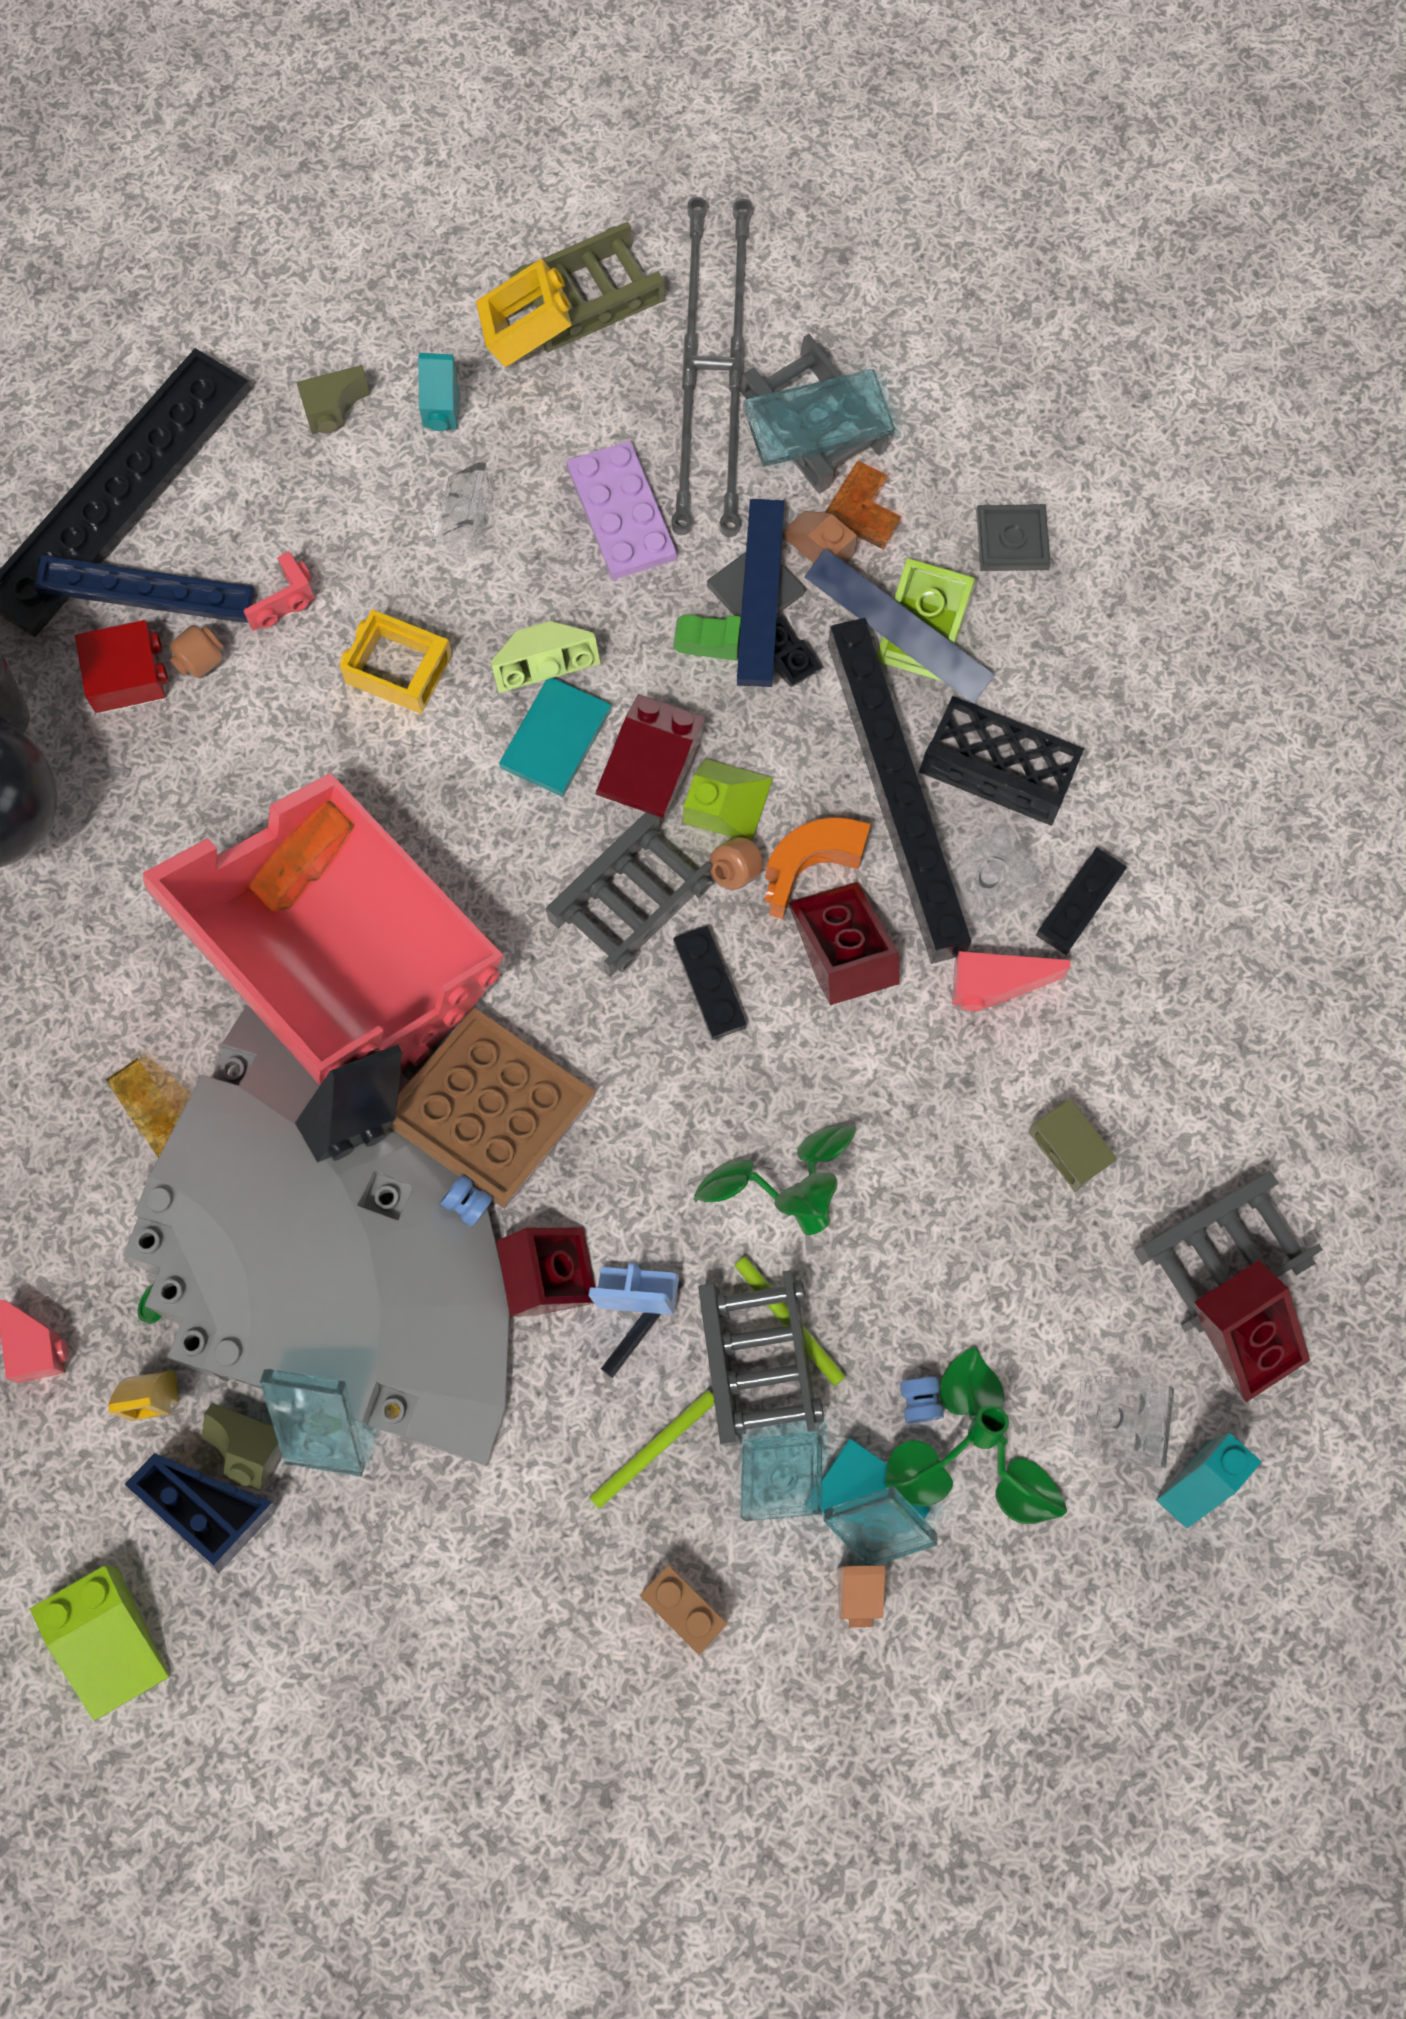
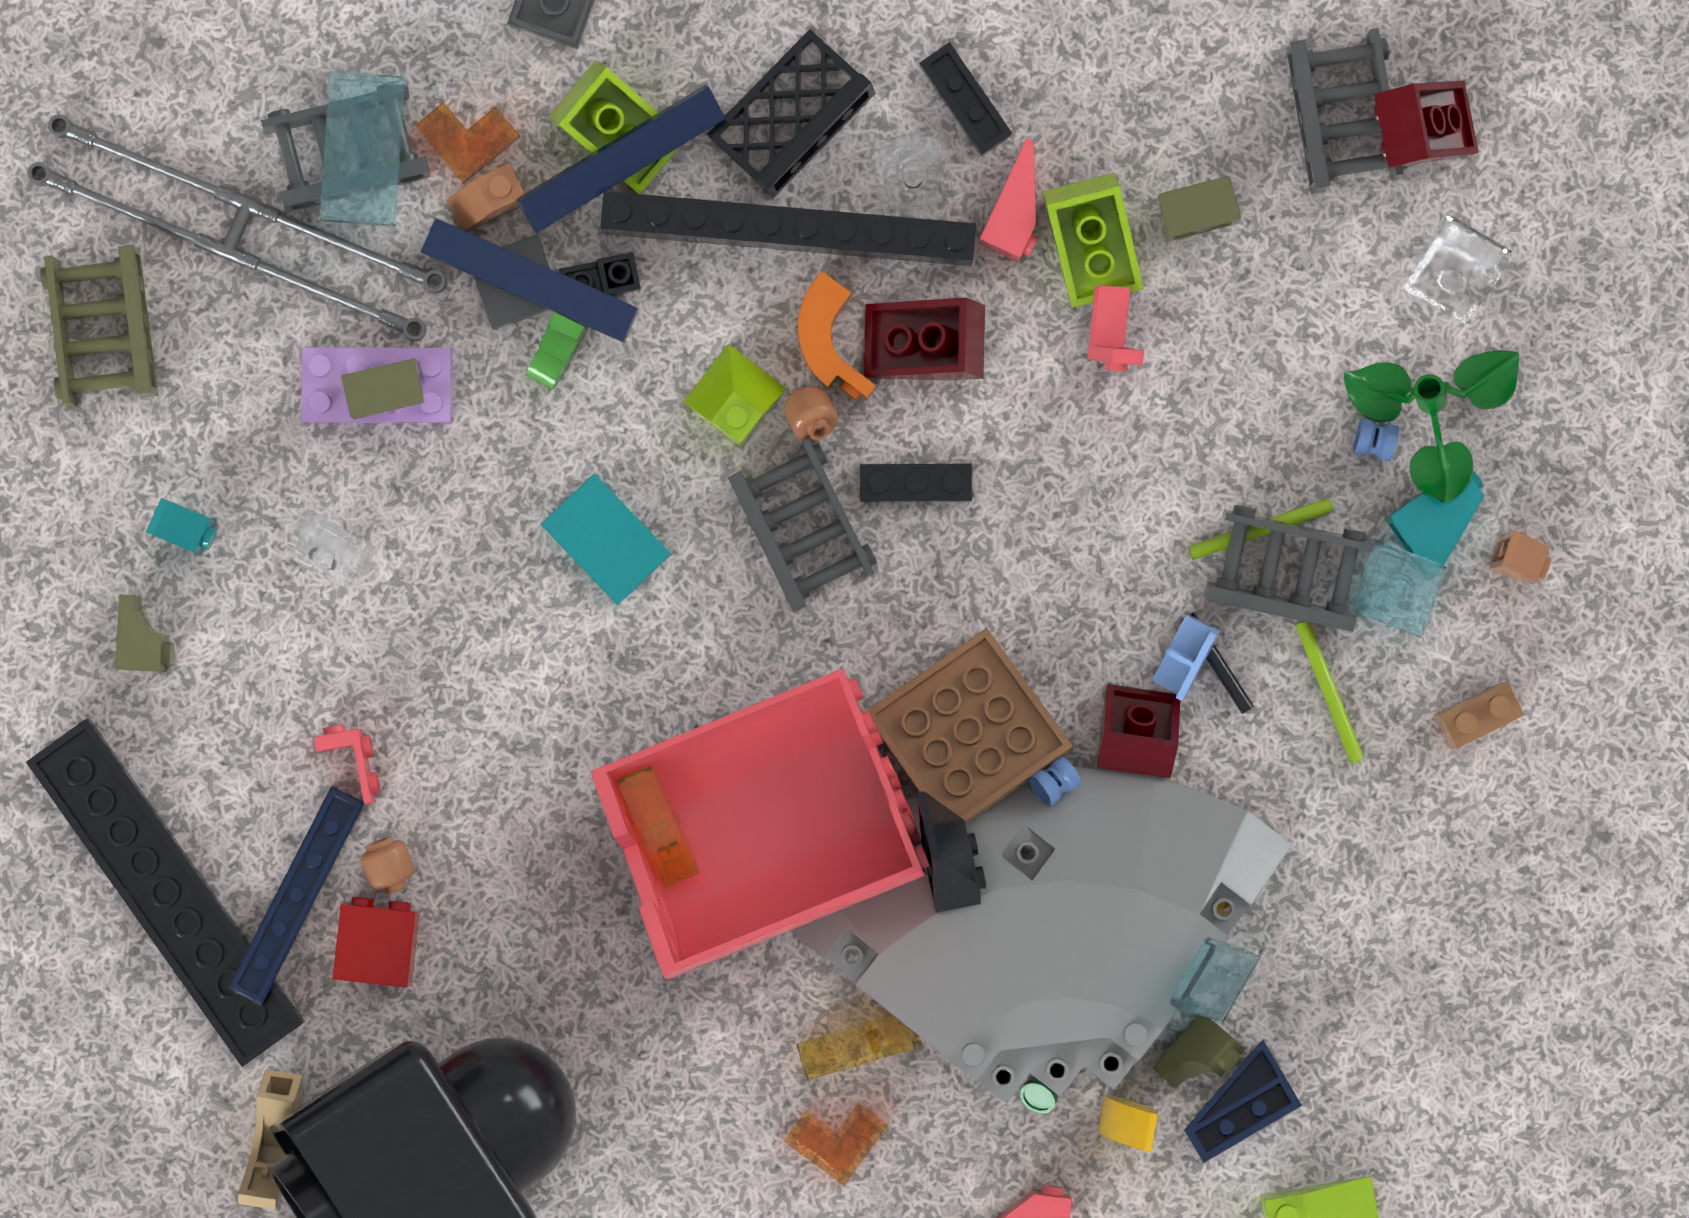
camera: 65 degrees left, 15 degrees up
(45, 1129) = (840, 1150): none -> clear orange plate
(427, 676) = (430, 689): yellow window -> none
(533, 329) = (118, 440): yellow window -> none
(542, 654) = (519, 521): yellowish green slope -> none
(617, 500) = (383, 388): none -> olive panel
(651, 756) = (673, 455): dark red slope -> none
(806, 1199) = (1175, 474): green plant -> none
(880, 1527) = (1475, 520): clear light blue tile -> none
(925, 1104) = (1109, 329): none -> coral bracket
(1001, 1059) = (1092, 237): none -> lime slope
(1208, 1479) = (1537, 219): teal slope -> none

